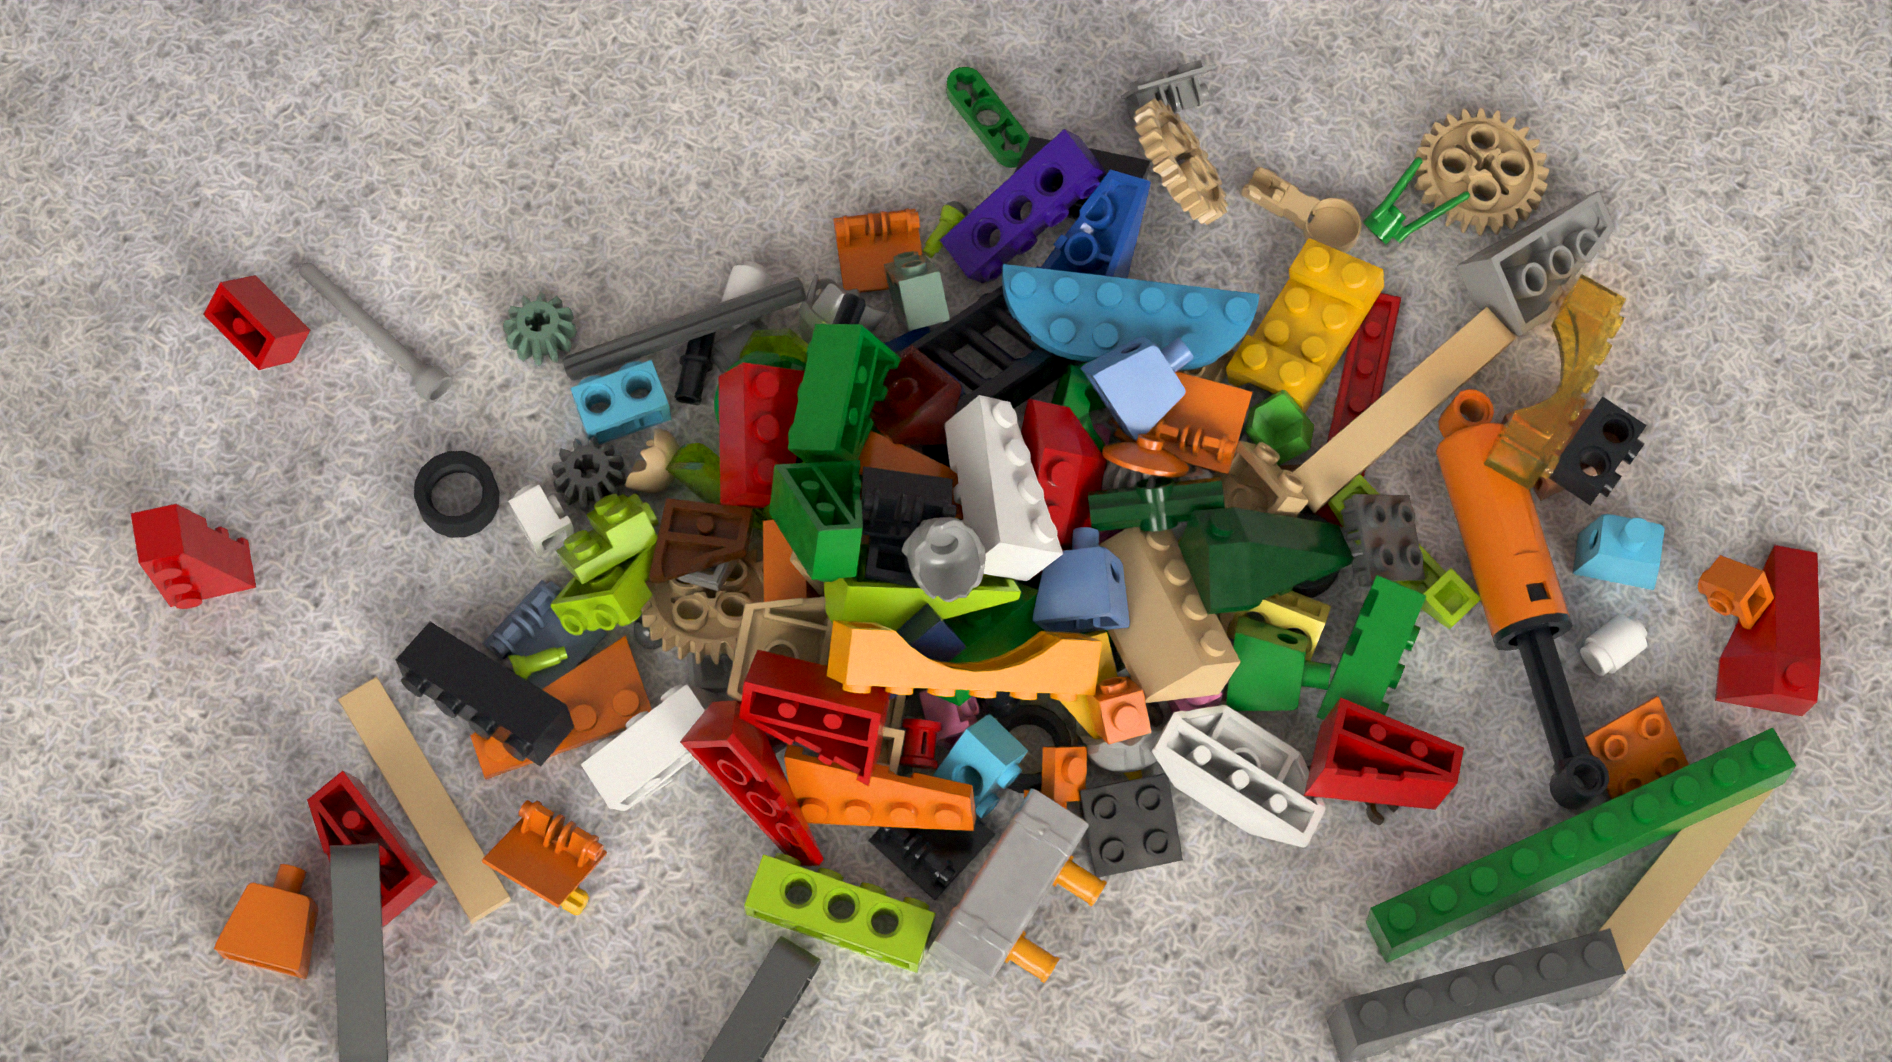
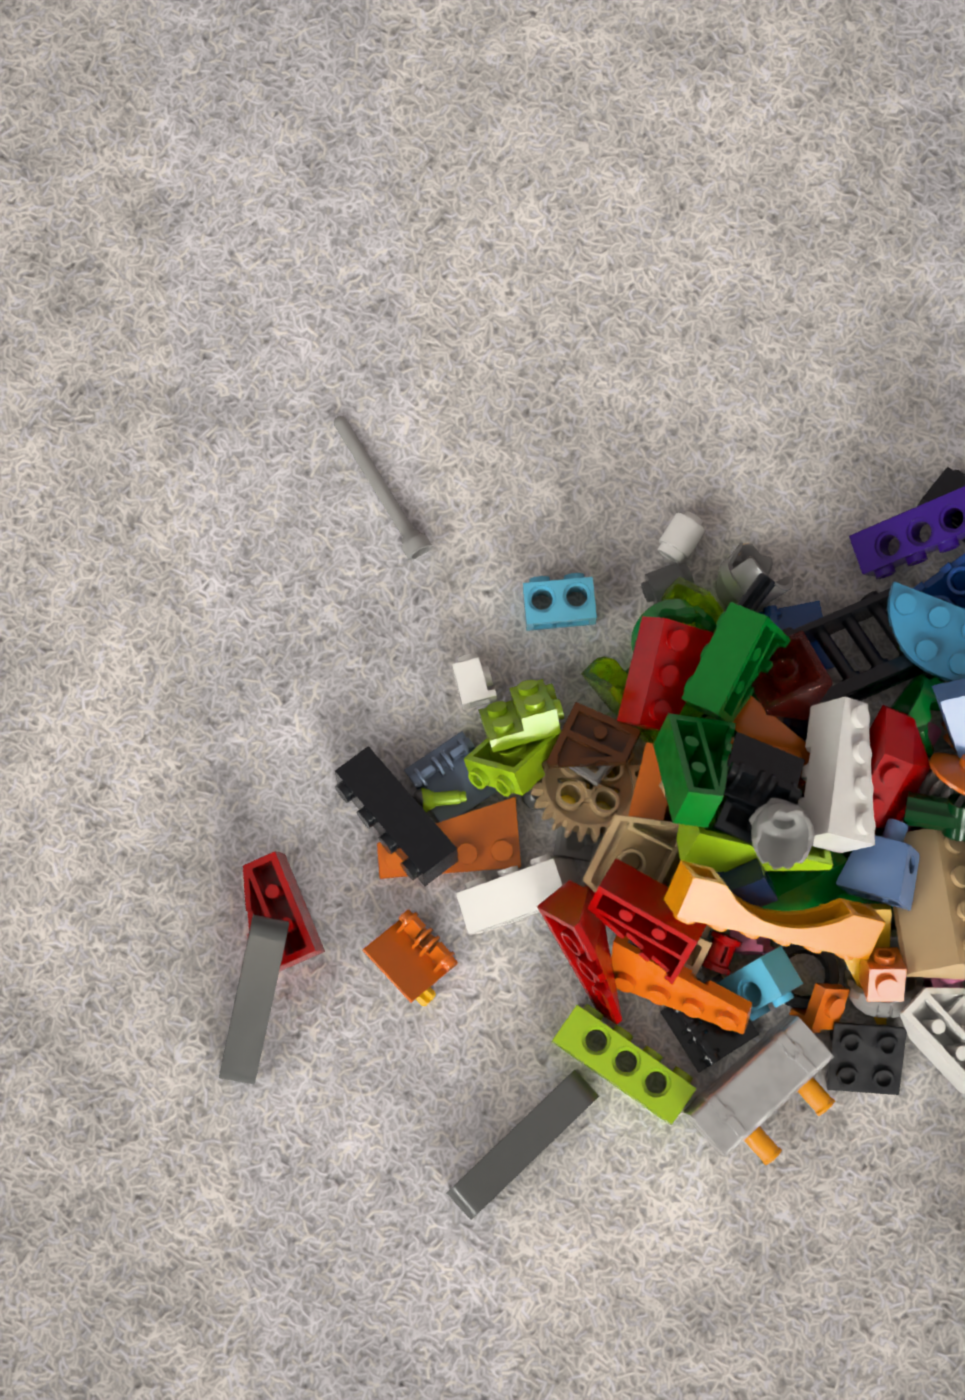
camera: 20 degrees right, 10 degrees up
(188, 557) = (196, 646): red wedge -> none
(256, 322) = (291, 459): red brick -> none
(272, 925) = (194, 951): orange torso -> none
(424, 800) = (329, 882): tan tile -> none
(447, 464) = (419, 617): black tyre -> none
(554, 333) = (518, 532): sand green gear -> none
(583, 458) = (513, 643): dark grey gear -> none
(651, 474) = (567, 667): tan hair -> none
(684, 328) = (625, 556): dark grey axle -> none
(694, 369) = (626, 584): black axle -> none
(871, 241) = (798, 528): orange hinge -> none
(916, 290) = (818, 577): sand green brick -> none
(950, 216) = (864, 514): lime piece -> none
(986, 100) = (899, 415): green beam -> none

